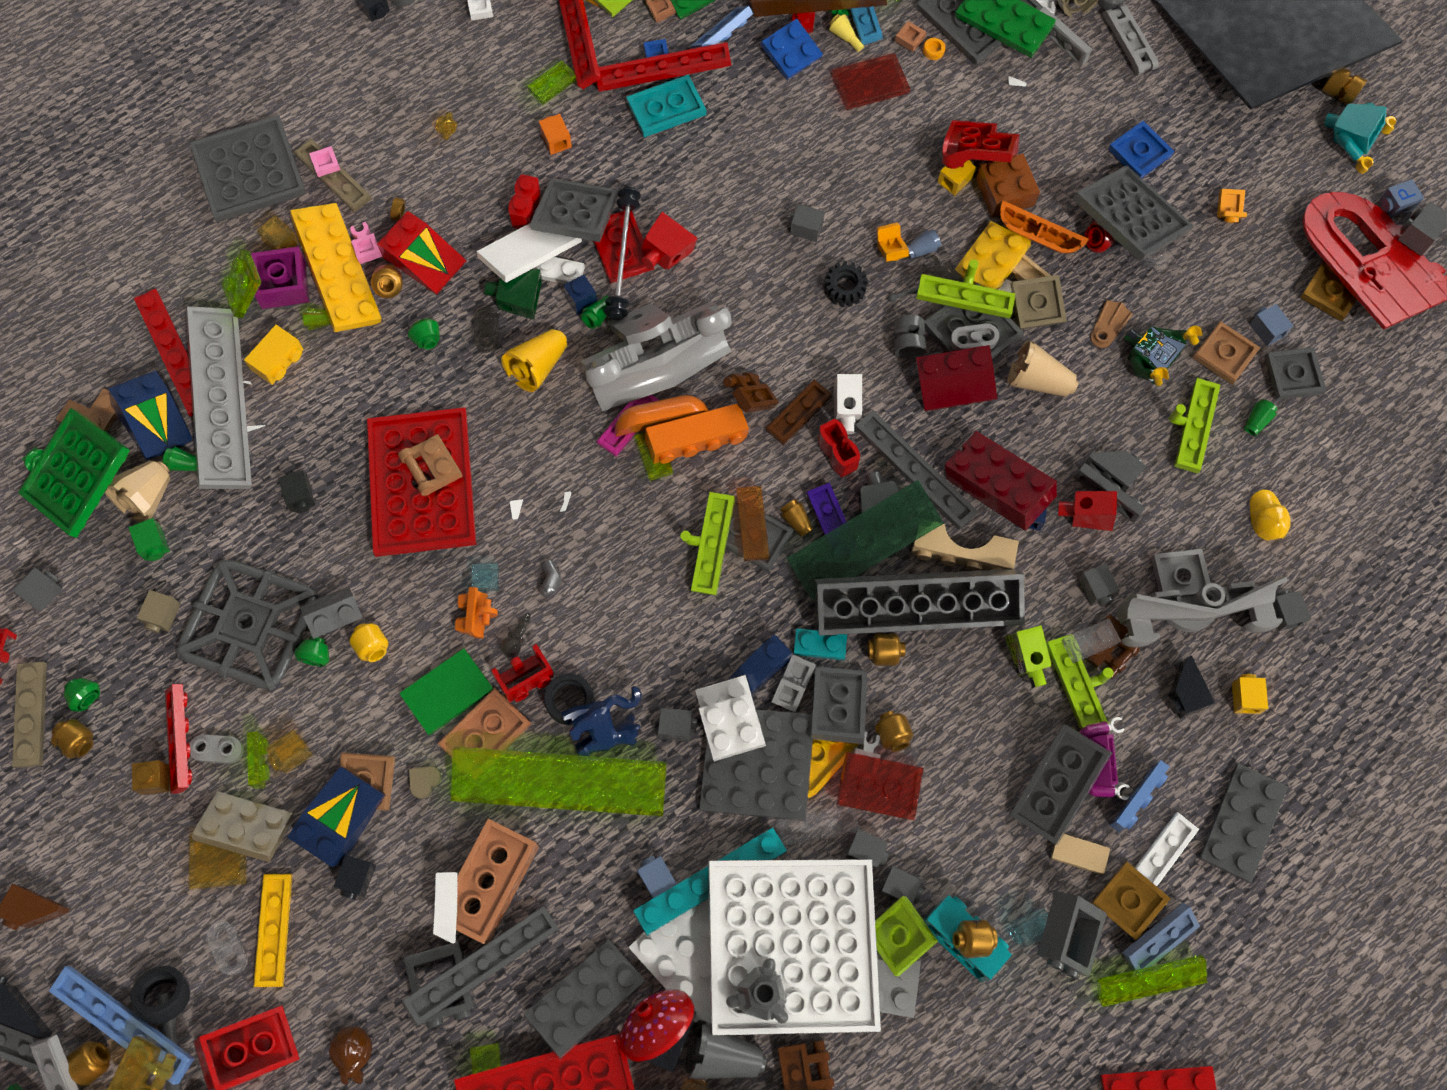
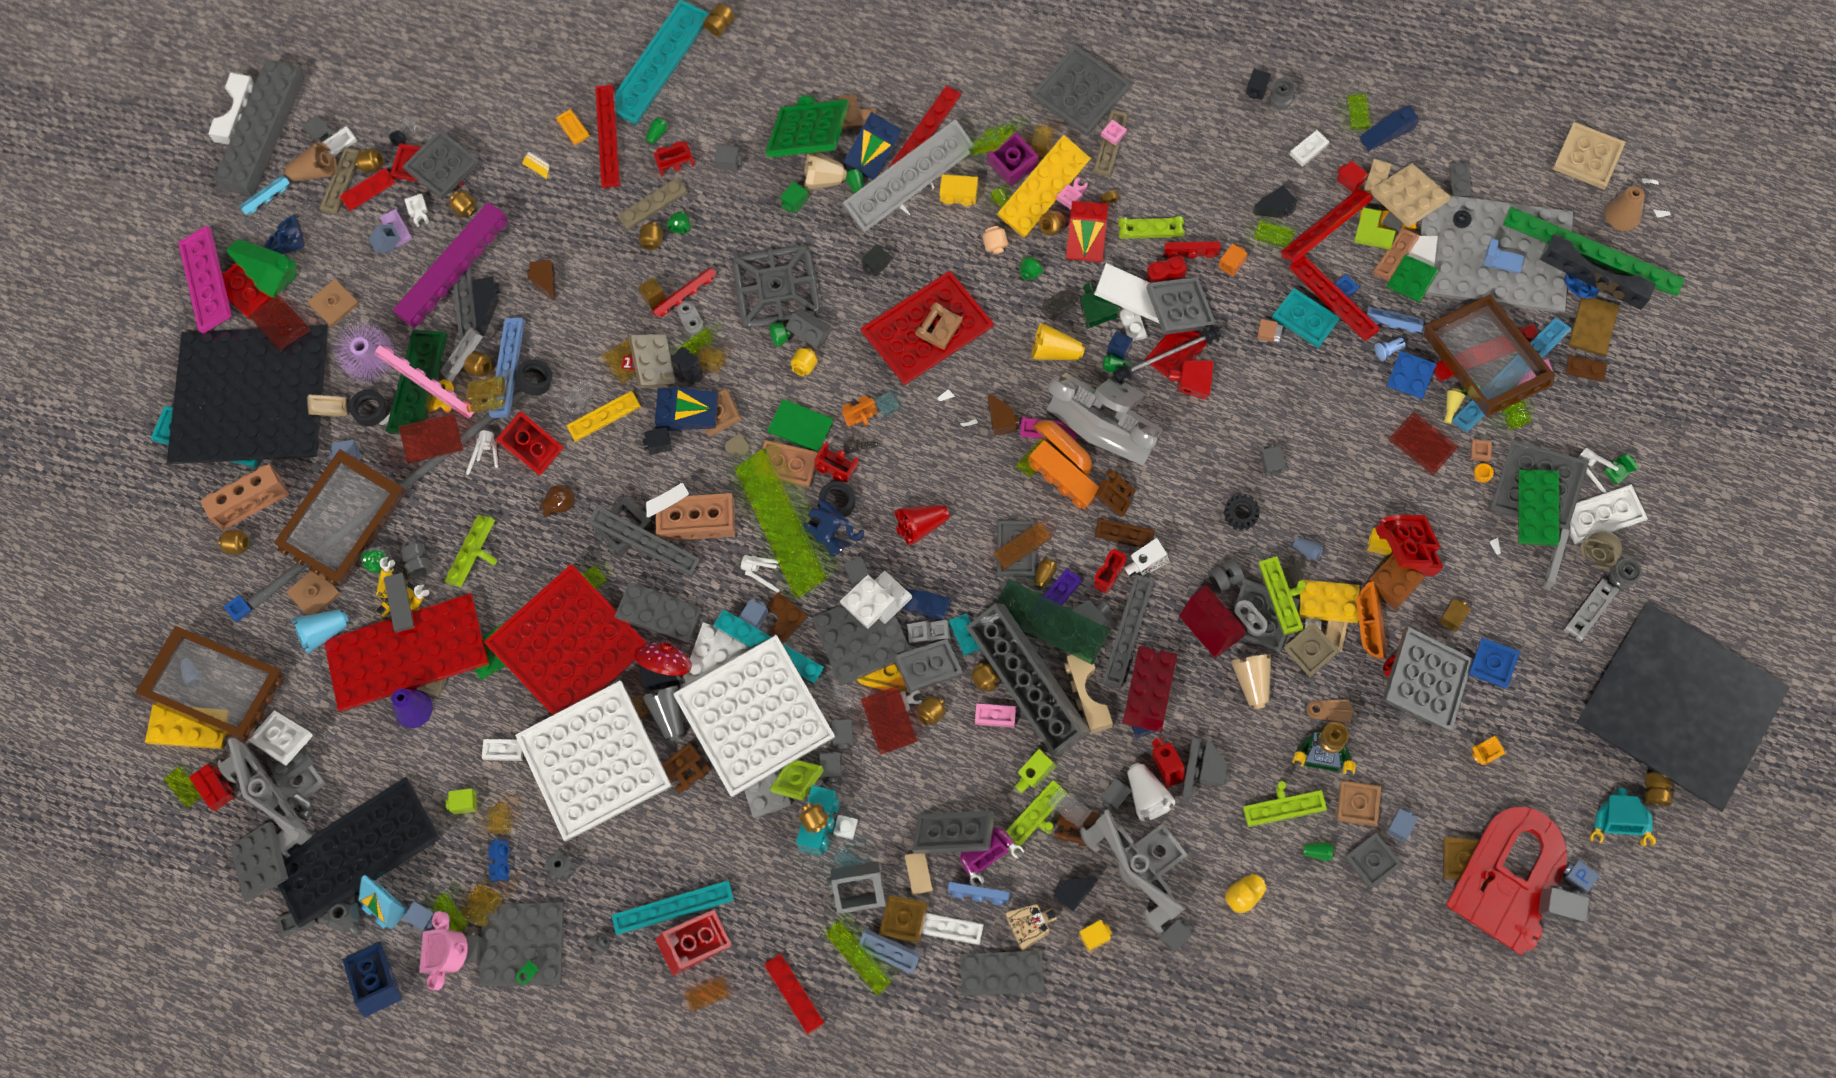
camera: 70 degrees right, 0 degrees up
(158, 612) = (752, 232): dark tan brick -> none
(225, 858) = (628, 363): none -> red sticker
(282, 784) = (687, 366): none -> black brick
(364, 351) = (995, 240): none -> light nougat head
(446, 125) = (1193, 189): clear yellow plate -> none
(461, 191) = (1151, 228): none -> lime plate
(515, 165) = (1192, 249): none -> red plate
(521, 59) = (1276, 204): none -> black slope
(552, 580) = (909, 445): flat silver arm -> none
(582, 460) = (1002, 416): none -> reddish brown slope
(588, 845) = (752, 564): none -> white plant
(656, 620) = (919, 521): none -> red cone
(657, 147) = (1269, 331): none -> nougat piece
(680, 835) = (789, 617): none -> reddish brown plate
(711, 543) = (991, 527): lime plate -> none
(749, 56) = (1386, 349): none -> light blue pin
(761, 994) = (711, 708): dark grey rock -> none
(890, 242) = (1294, 526): light orange bracket -> none
(936, 663) = (995, 715): none -> bright pink plate
(982, 907) = (845, 827): none -> white plate
(1072, 154) = (1455, 614): none -> pearl gold brick
(1116, 547) = (1148, 793): none -> white cone
(1157, 329) = (1333, 737): none -> pearl gold wheel
(1204, 759) = (1029, 924): none -> tan torso

